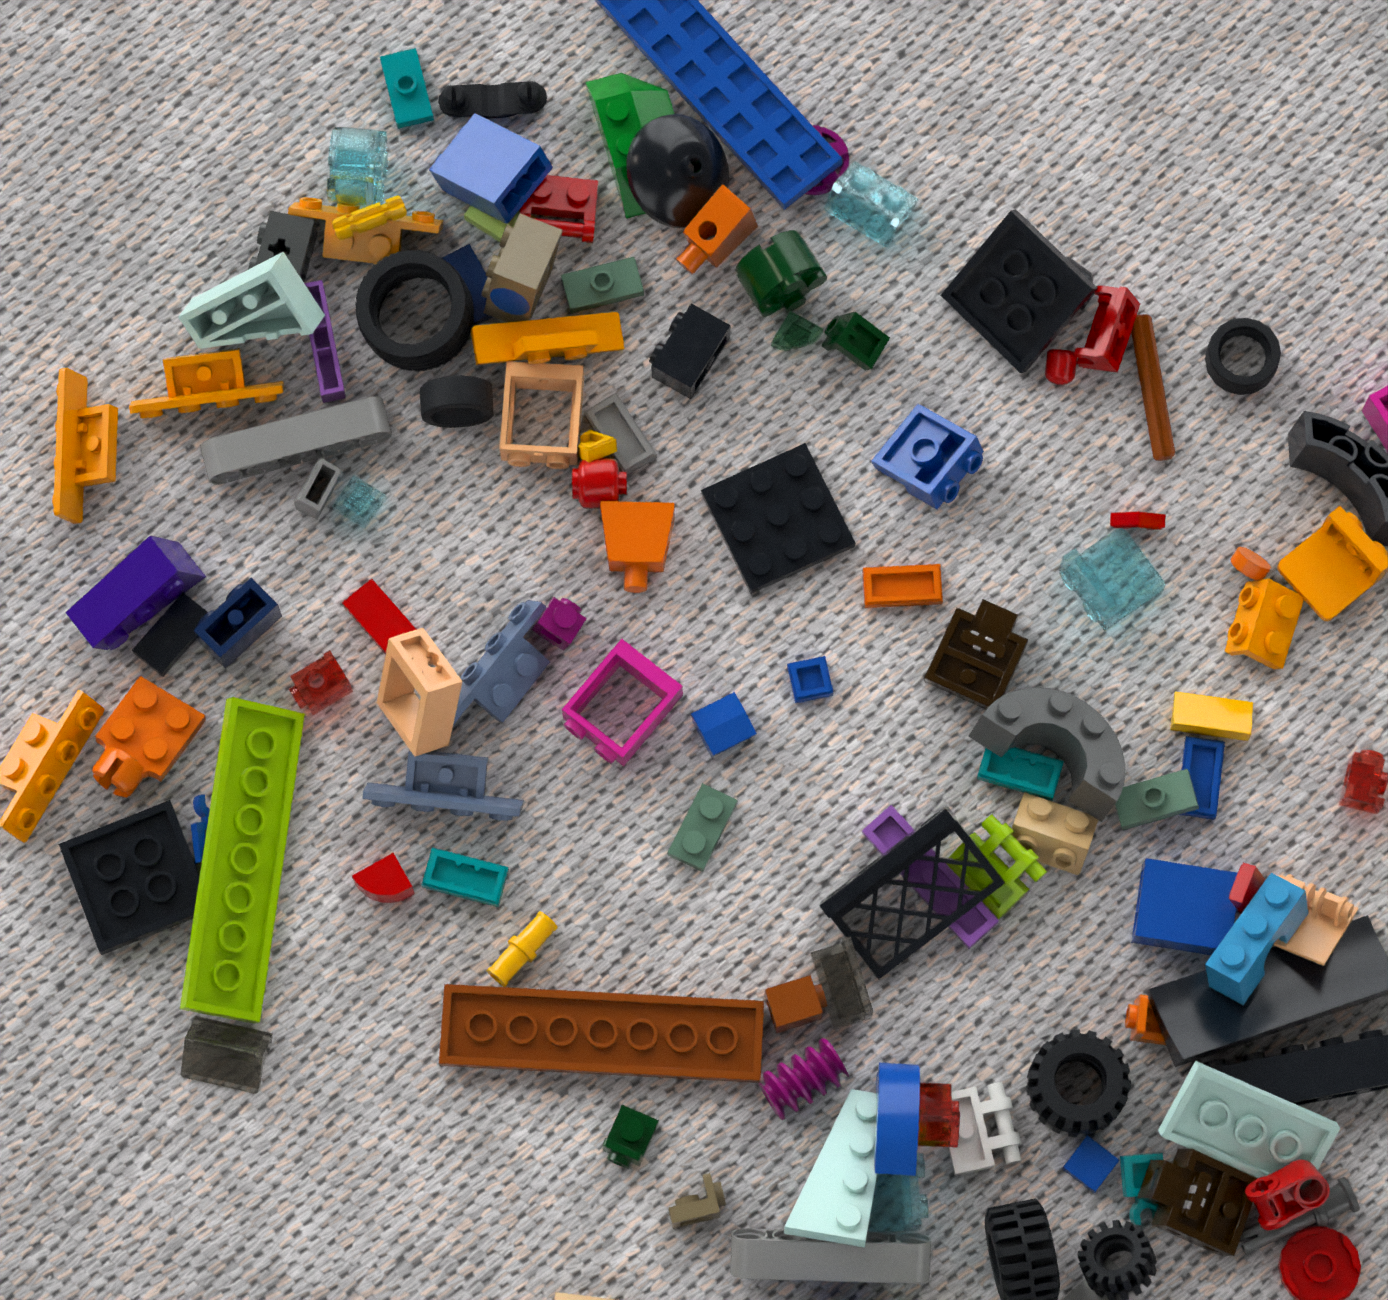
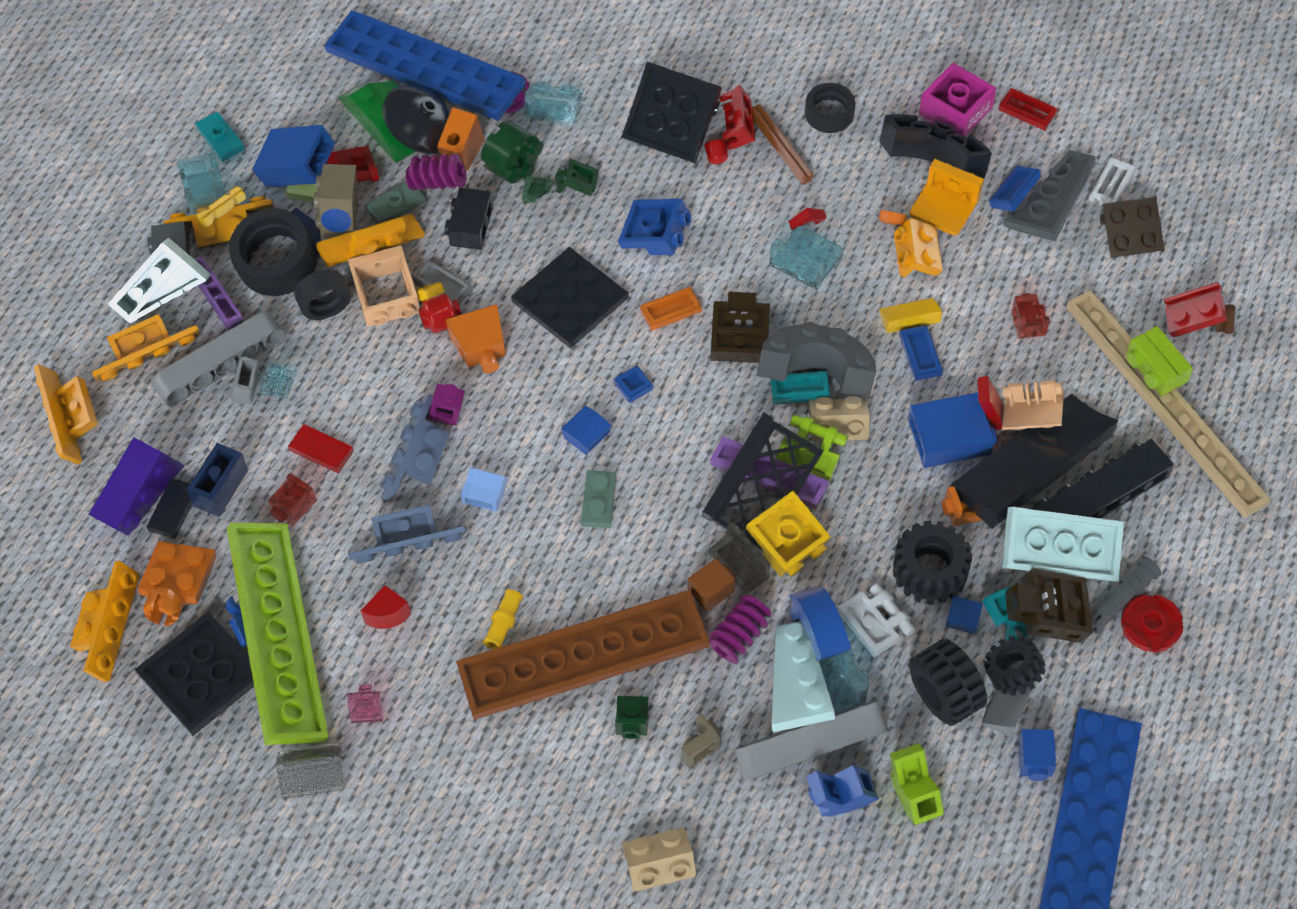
camera: 20 degrees left, 15 degrees down
(317, 998) = (365, 705): none -> clear pink tile
(423, 722) = (378, 454): light nougat window -> none
(465, 877) = (443, 588): teal plate -> none
(492, 100) = (300, 115): black piece -> none
(564, 759) = (483, 489): none -> light blue piece
(644, 671) = (518, 415): dark pink window -> none
(667, 271) = (435, 172): none -> magenta piece
(915, 977) = (788, 535): none -> yellow plate
(938, 1116) = (851, 611): clear red brick -> none
(1156, 799) = (899, 373): sand green plate -> none
(1240, 957) = (1009, 412): dark azure arch -> none
(1285, 1195) = (1105, 578): red piece -> none

